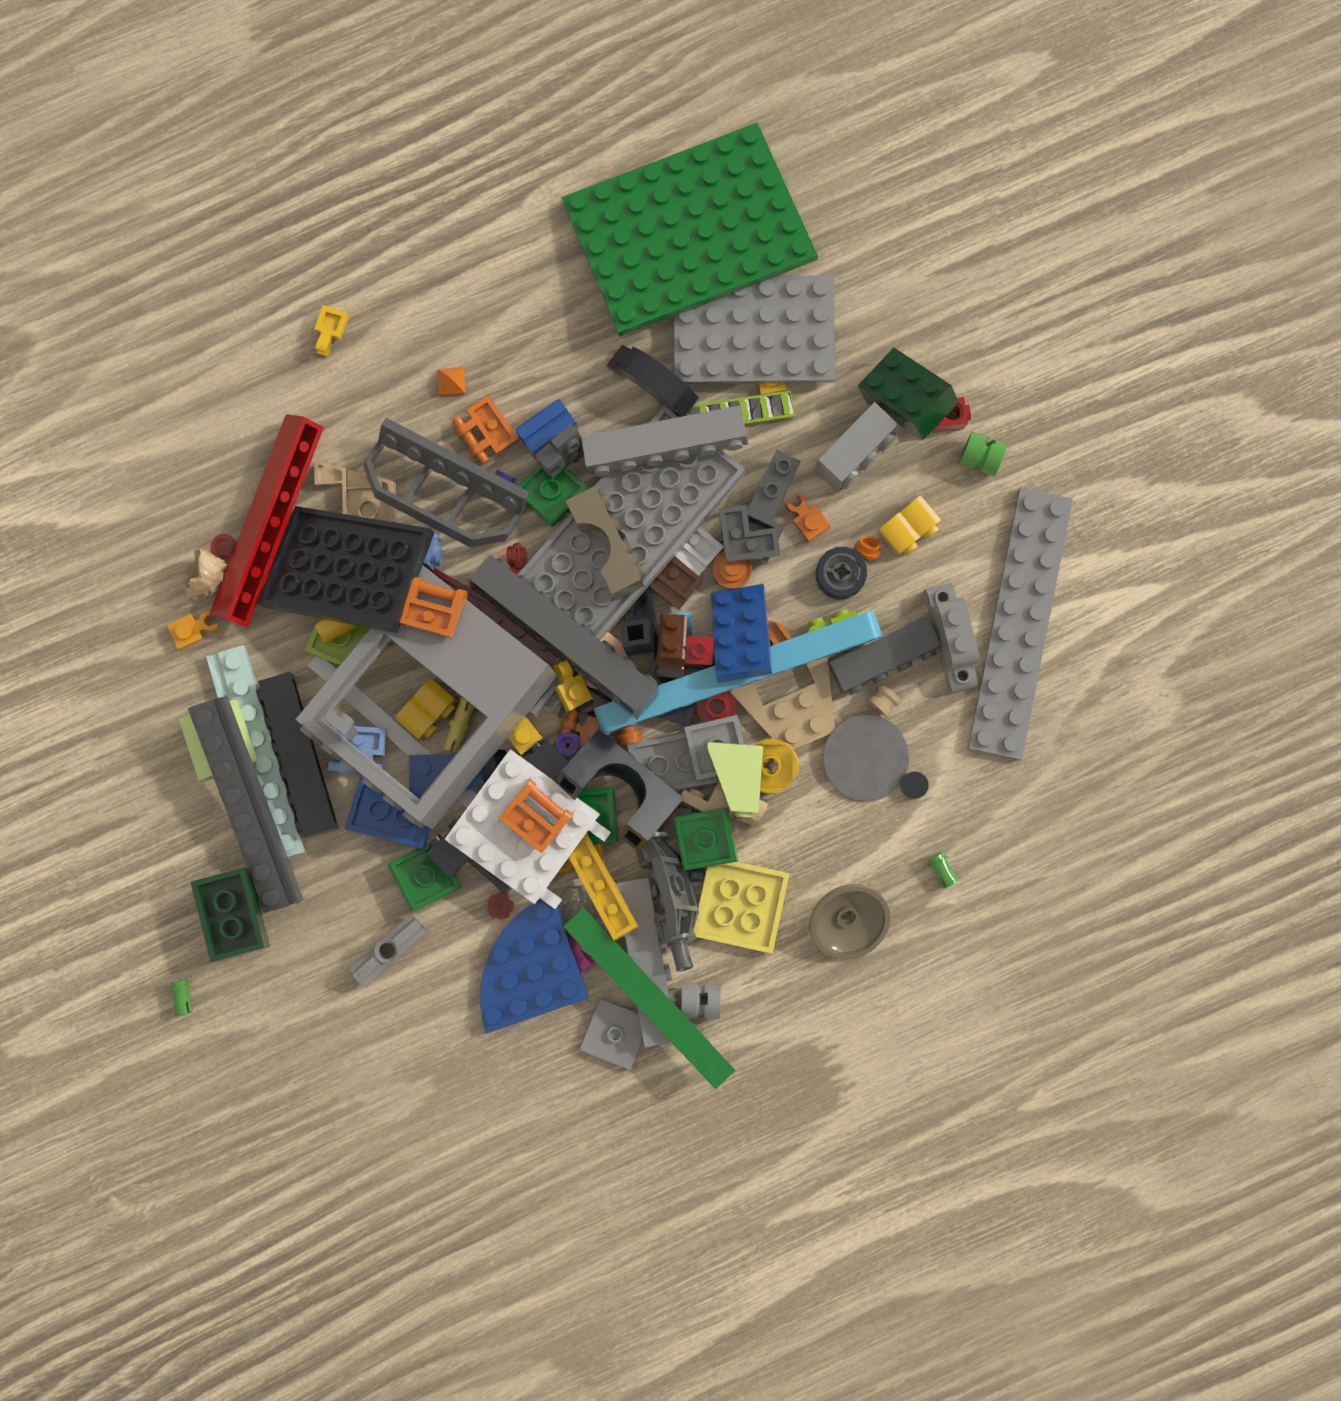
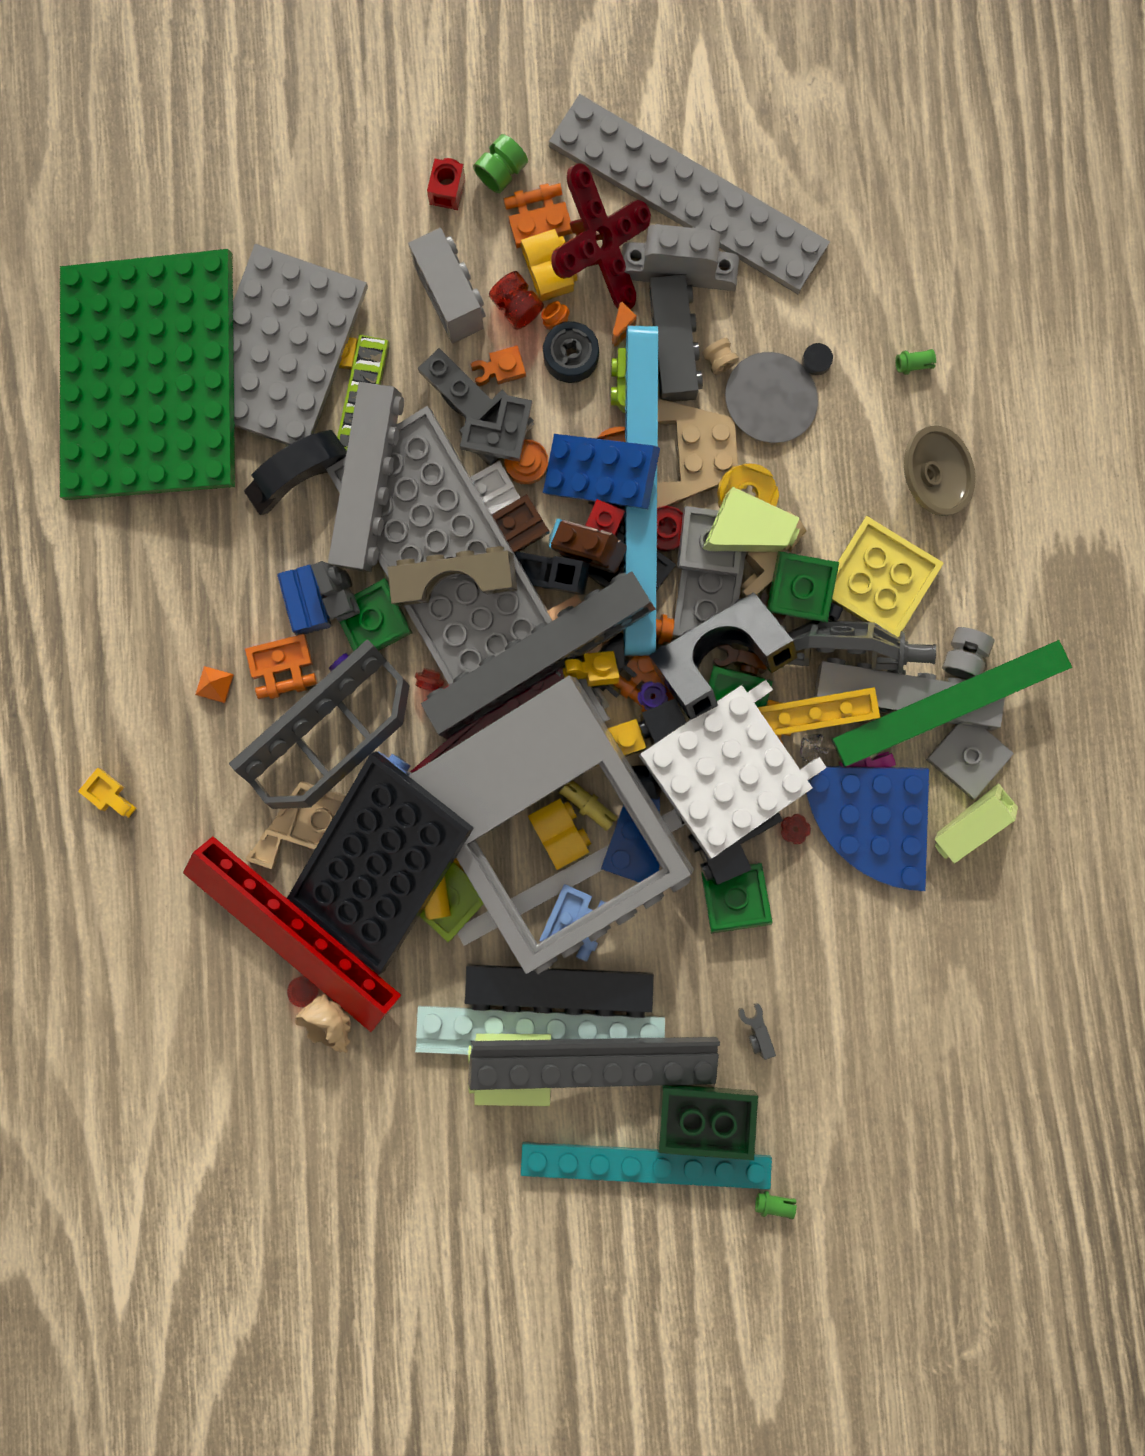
camera: 65 degrees left, 0 degrees up
(176, 876) = (642, 1166): none -> teal plate
(189, 631) = (379, 1062): light orange plate -> none
(313, 936) = (760, 1040): none -> dark grey plate
(342, 723) = (551, 922): light grey plate -> none
(375, 963) = (811, 982): light grey piece -> none
(378, 819) = (657, 927): blue wing -> none
(431, 616) = (467, 786): orange plate -> none
(529, 823) = (728, 760): orange plate -> none
(557, 1057) = (976, 824): none -> yellowish green slope
(628, 807) = (747, 661): none -> reddish brown plate
(866, 513) = (513, 296): none -> clear red wheel
(881, 608) = (624, 318): none -> orange slope
(908, 393) = (409, 208): dark green brick -> none
(947, 507) = (538, 220): none -> orange plate
(954, 550) = (613, 231): none -> dark red piece

